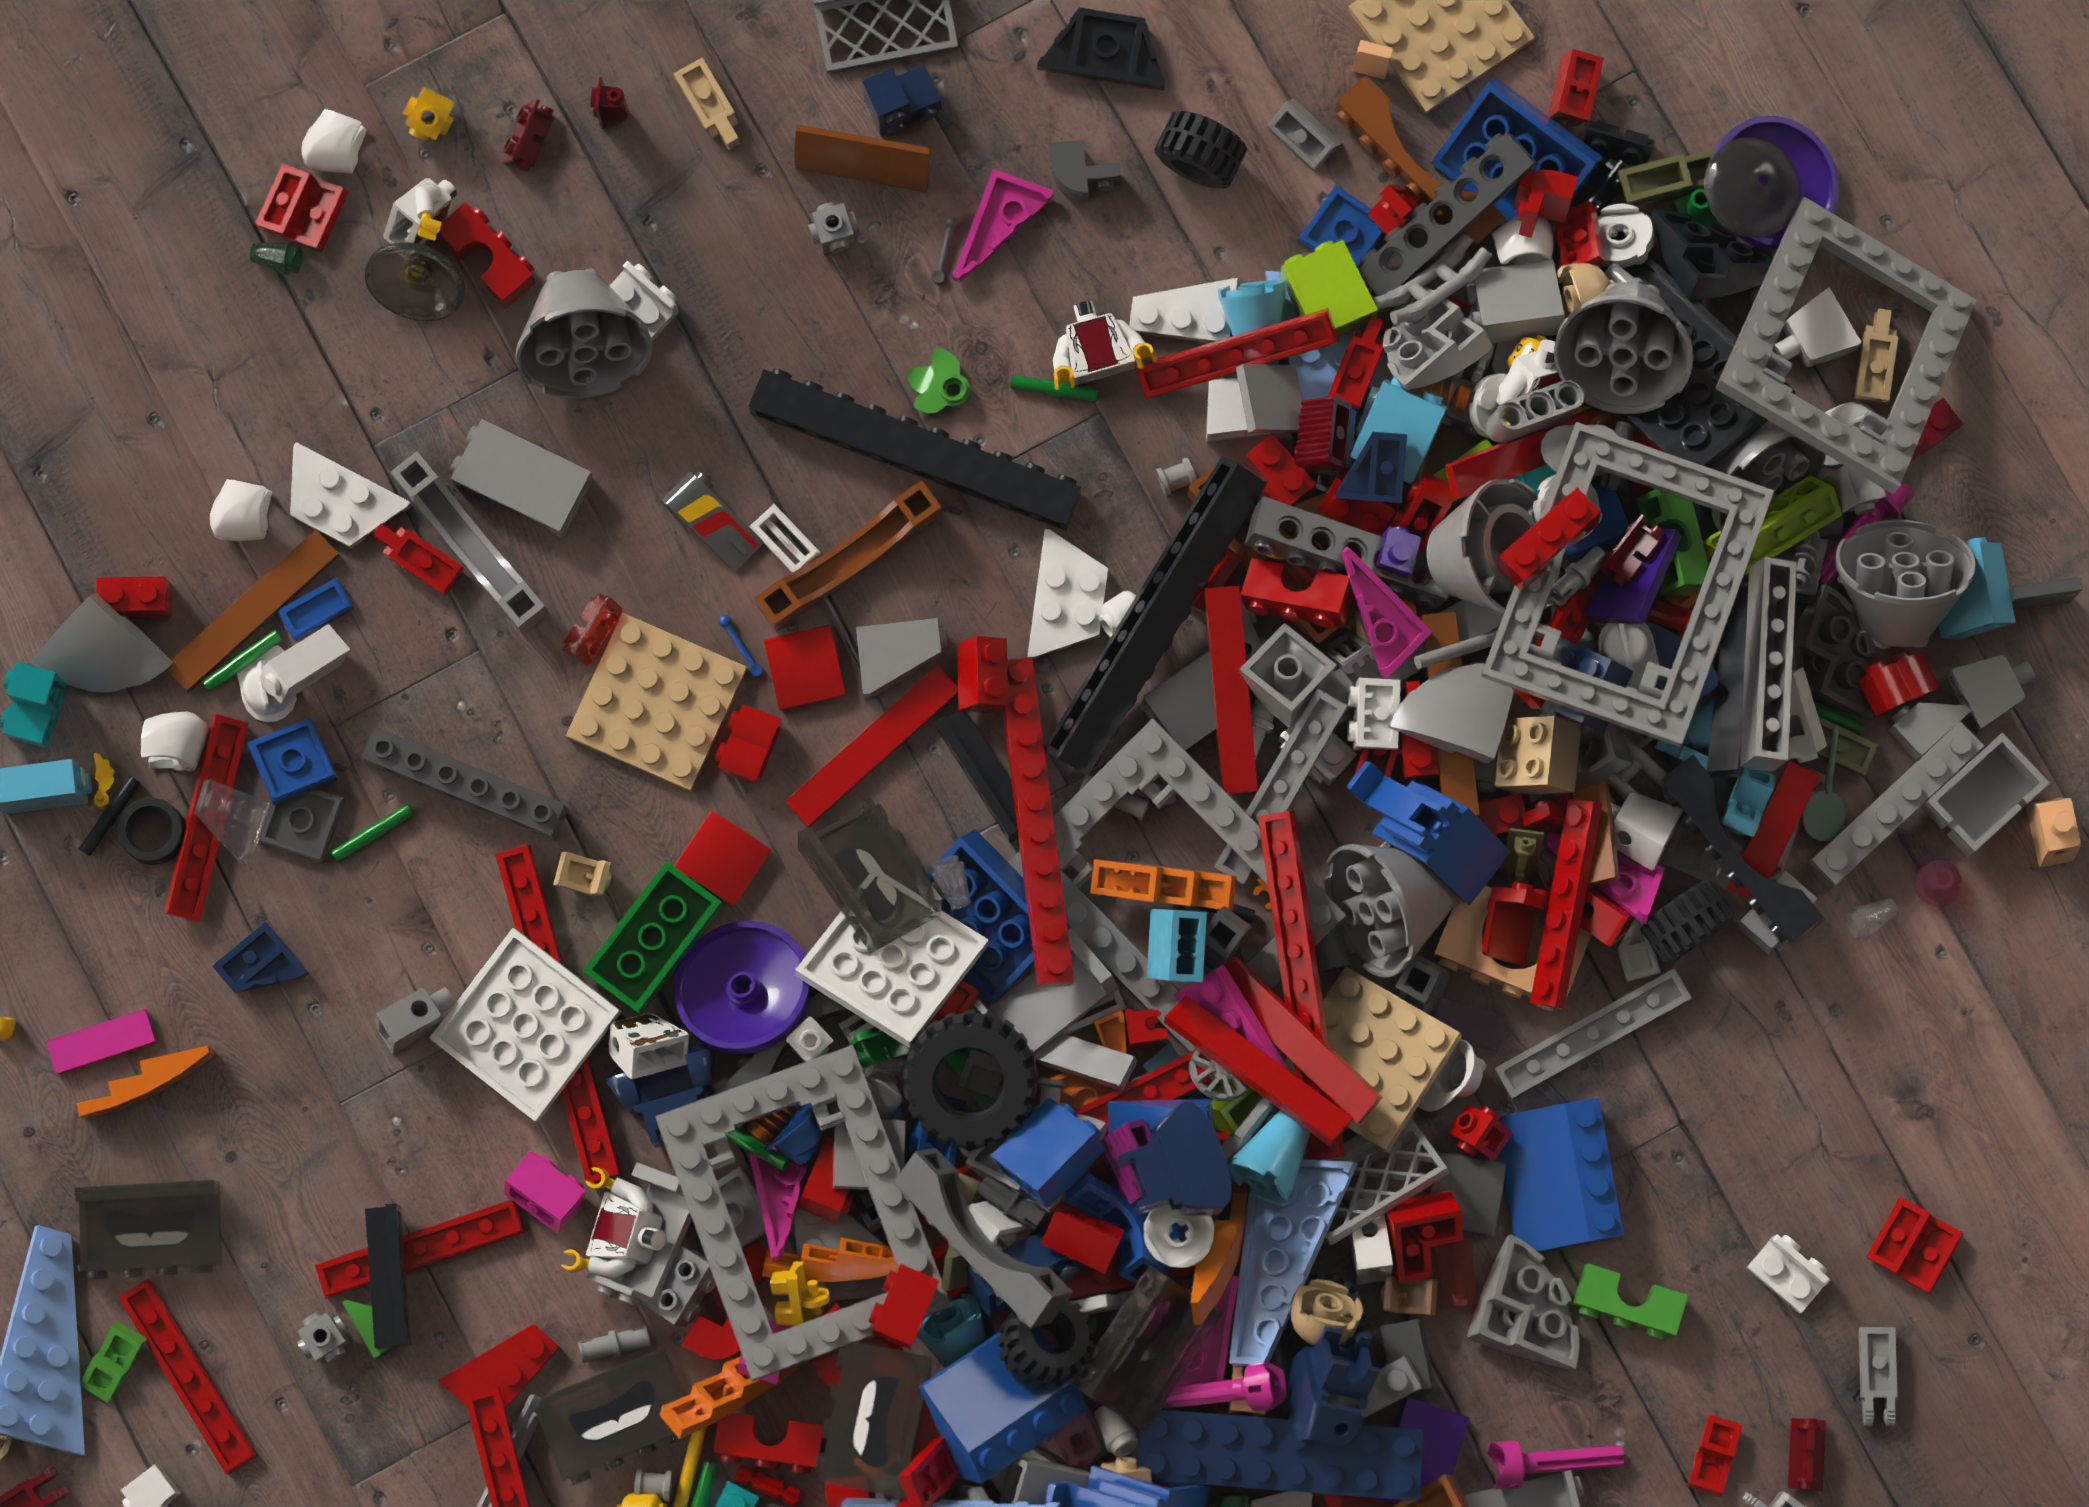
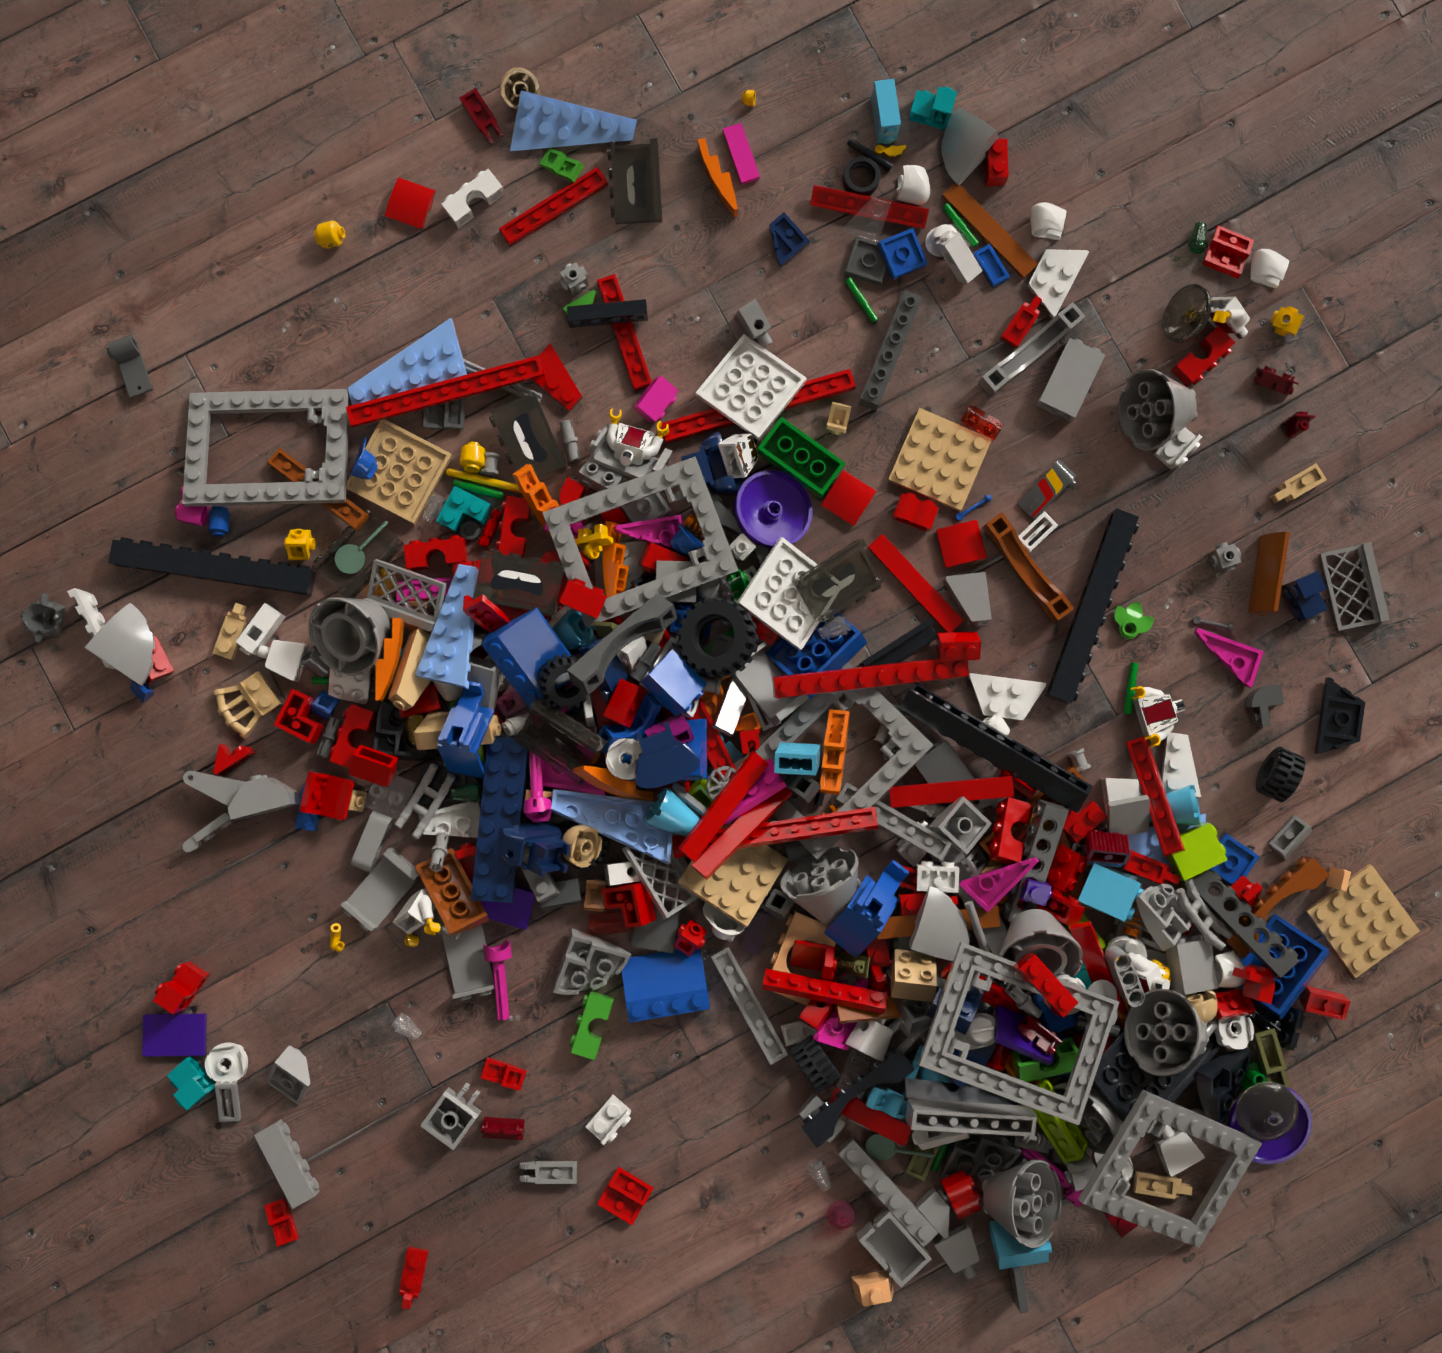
camera: 85 degrees right, 5 degrees up
(759, 1149) = (679, 519): green piece -> none
(1377, 470) = (1085, 879): dark blue wing -> none

